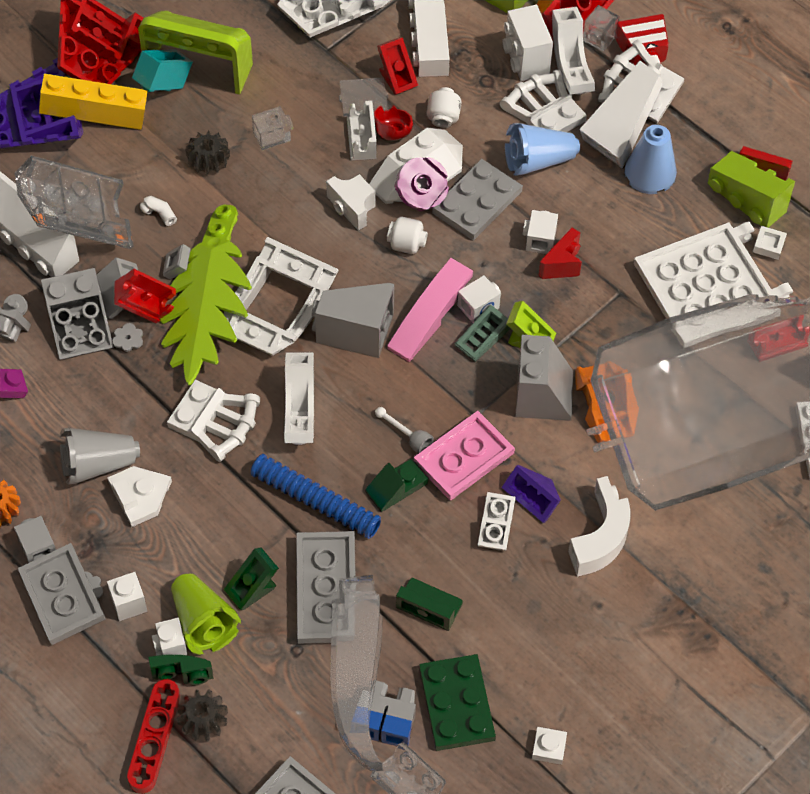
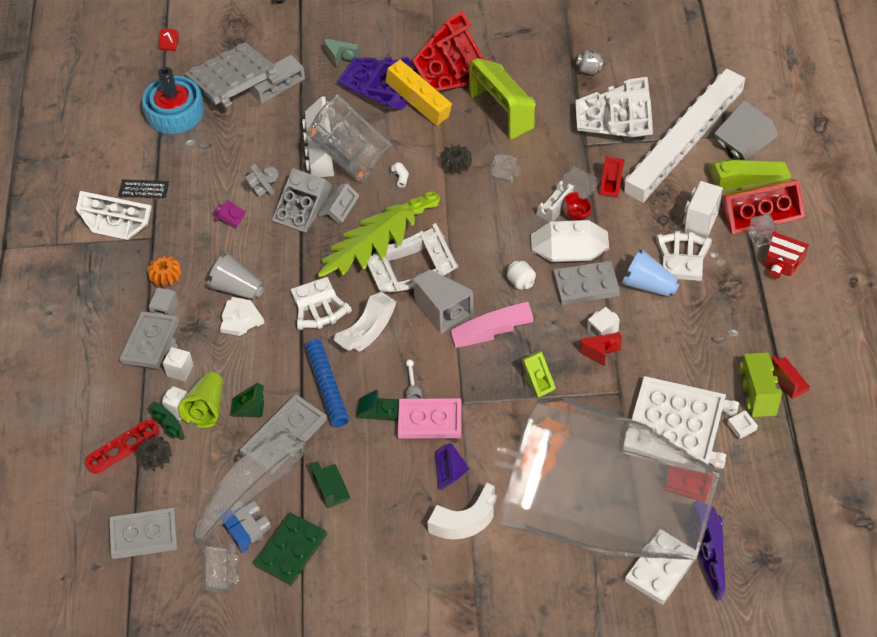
camera: 45 degrees right, 5 degrees down
(128, 337) = (316, 231): light grey plant -> none
(143, 295) = (340, 212): red hinge -> none
(162, 70) = (471, 97): teal piece -> none
(176, 261) = (379, 207): light grey tile -> none
(351, 198) = (511, 235): white brick -> none
(407, 183) = (545, 244): plate -> none
(443, 107) = (617, 217): white head -> none
(477, 297) = (527, 338): white brick -> none
(489, 314) = (513, 365): sand green slope -> none
(496, 521) = (411, 469): white slope -> none
(543, 380) = (509, 404): light grey slope -> none
(549, 745) = (315, 611): white plate -> none
(569, 50) = (726, 232): white arch -> none
(622, 115) = (721, 287): white slope -> none
(652, 161) = (712, 328): light blue cone -> none
(670, 81) = (759, 288): white plate -> none

